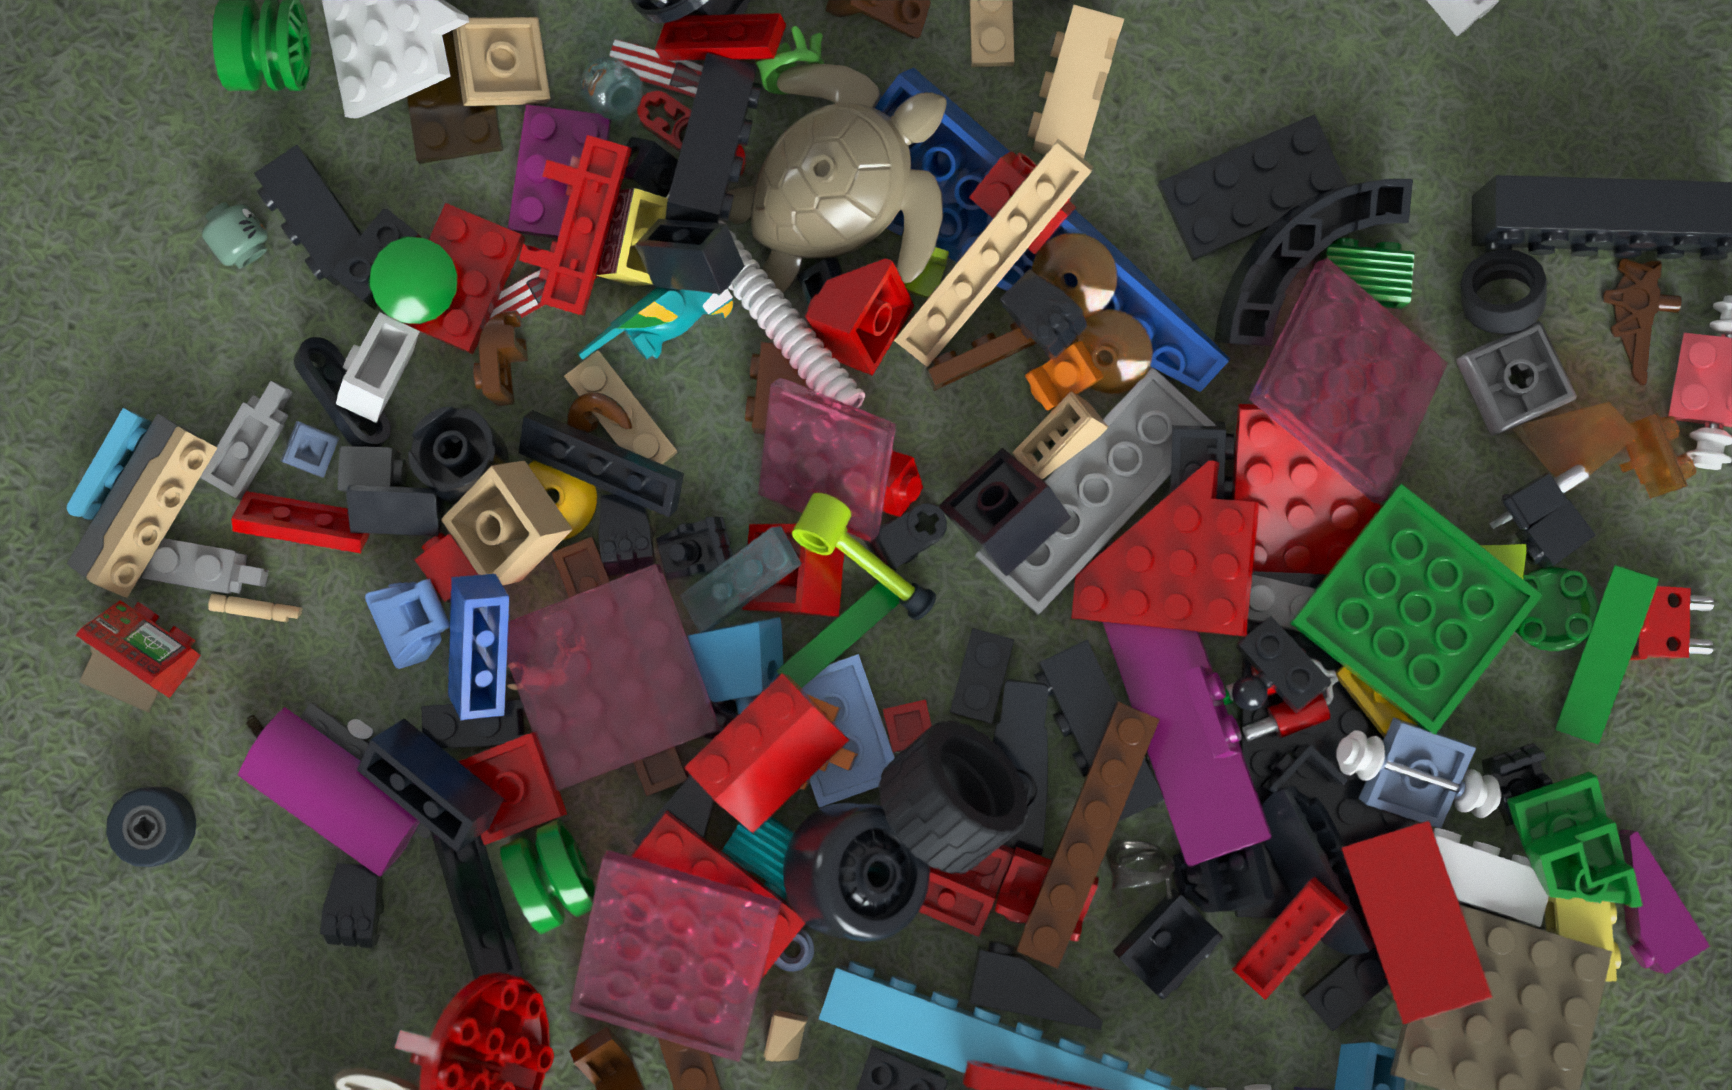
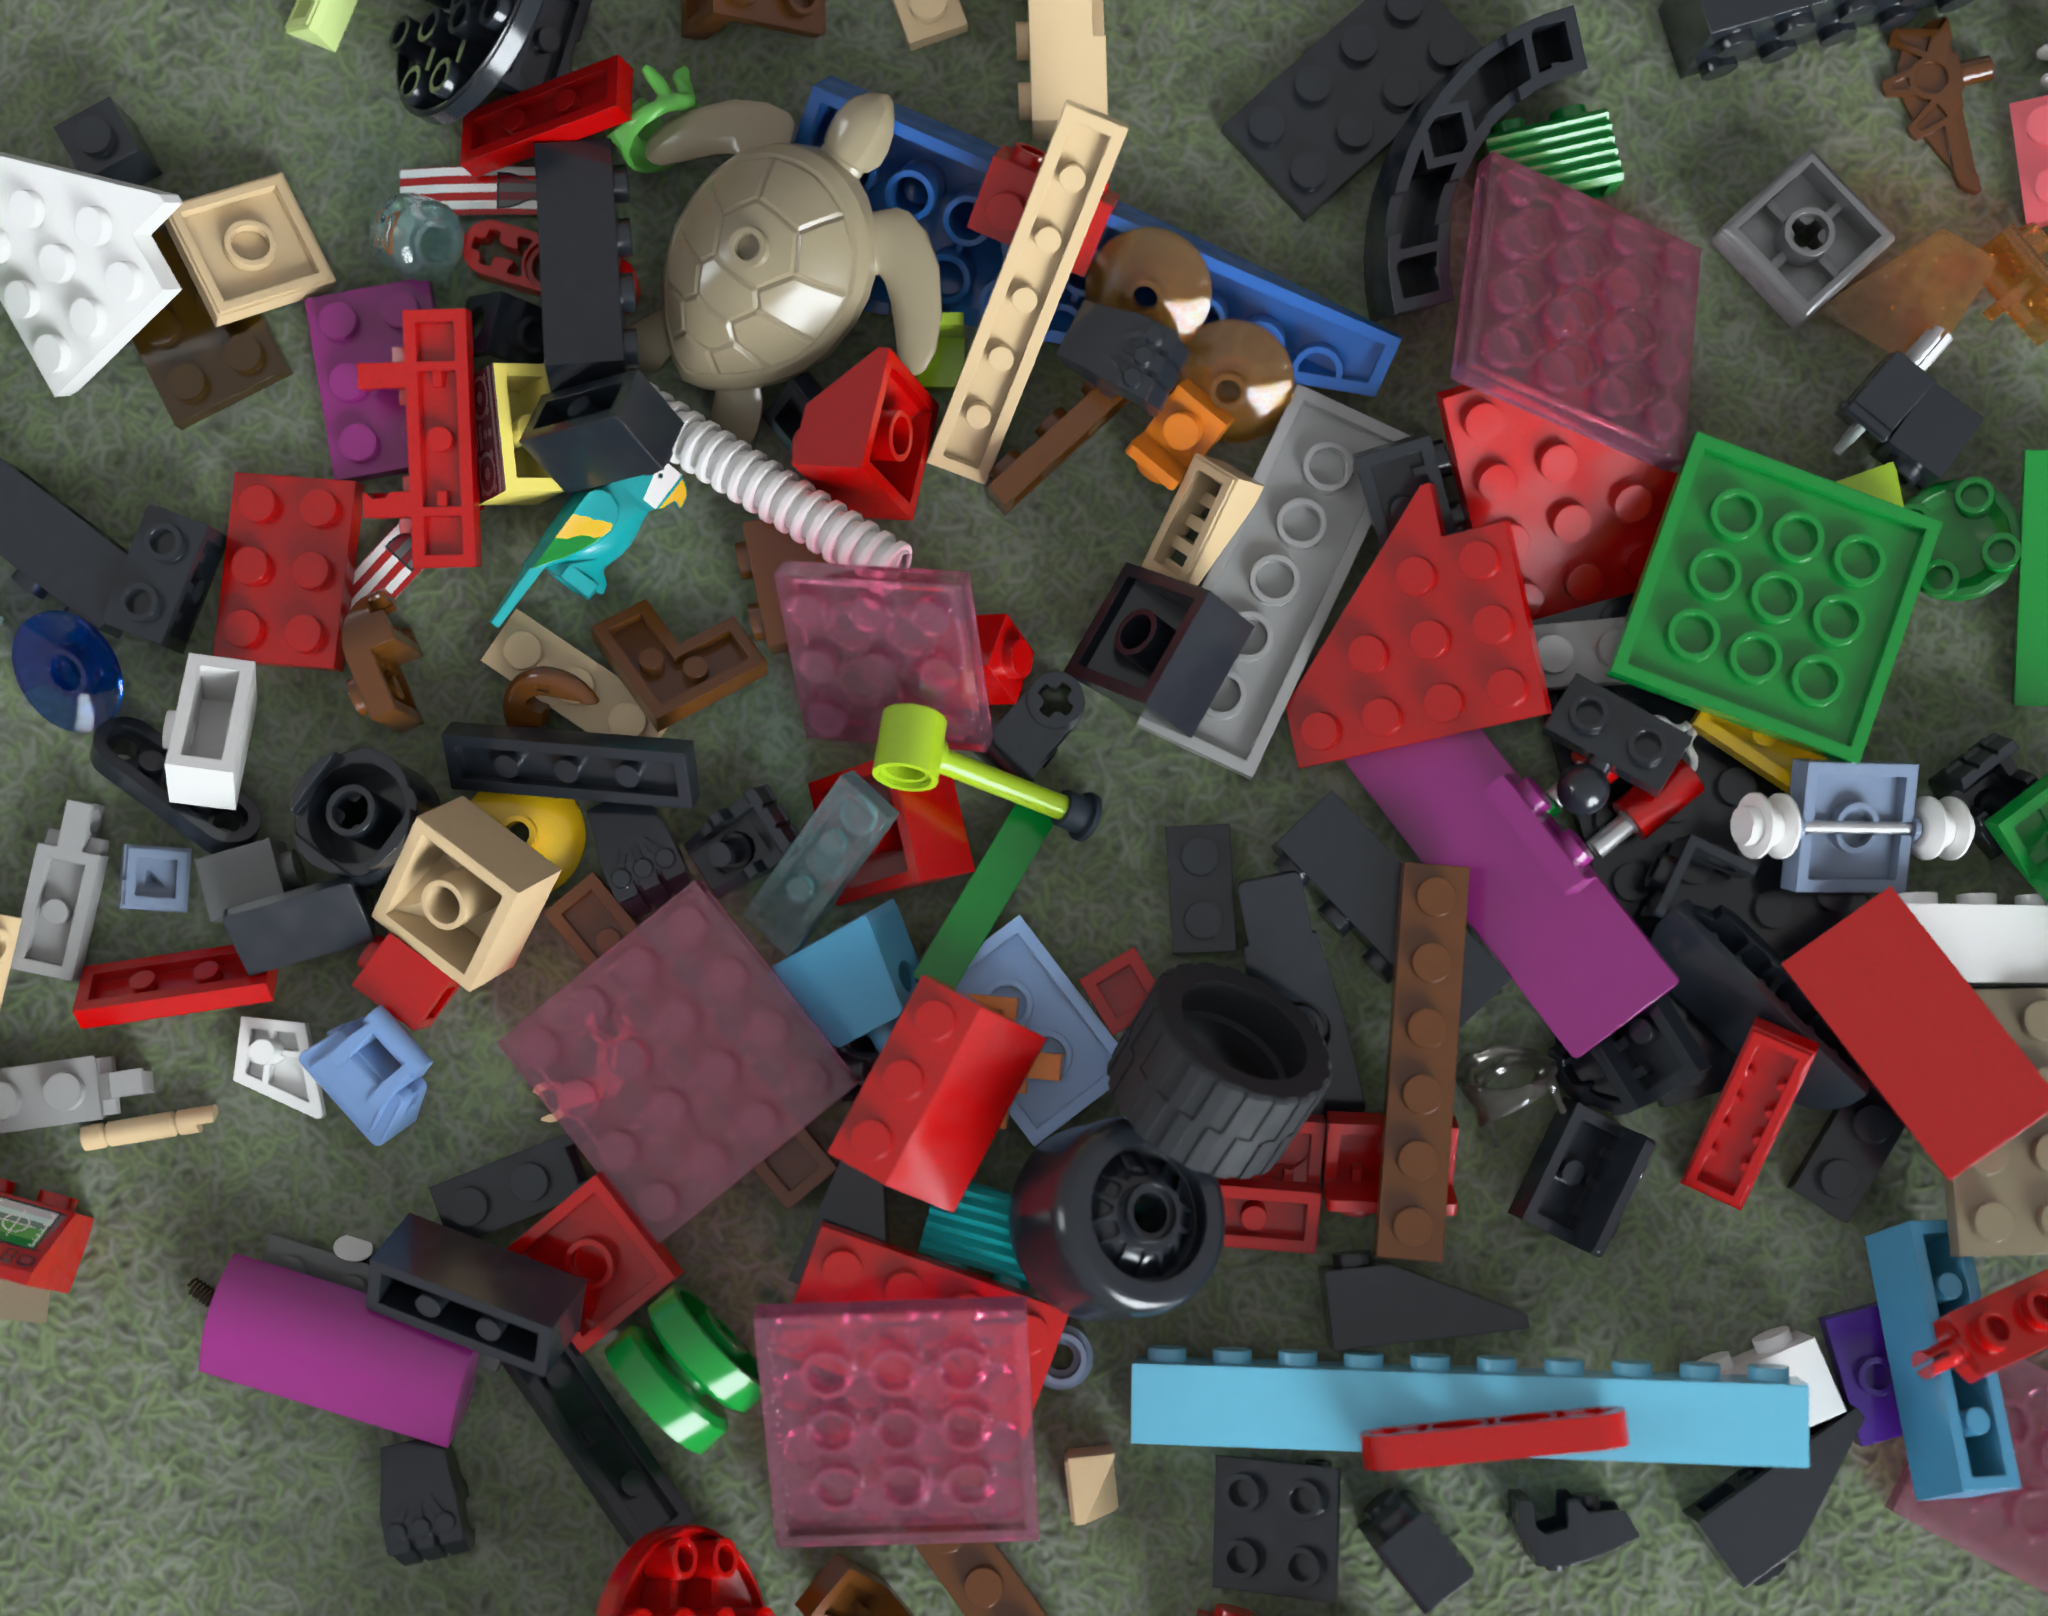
camera: 20 degrees left, 0 degrees up
(169, 826) = (124, 1471): black wheel -> none
(297, 297) = (67, 671): none -> clear blue dish
(346, 591) = (271, 1065): none -> white piece
(413, 280) = (222, 592): green dish -> none
(478, 646) = (481, 1077): blue brick -> none
(689, 429) = (675, 677): none -> reddish brown plate
(1506, 265) = (1737, 88): black tyre -> none

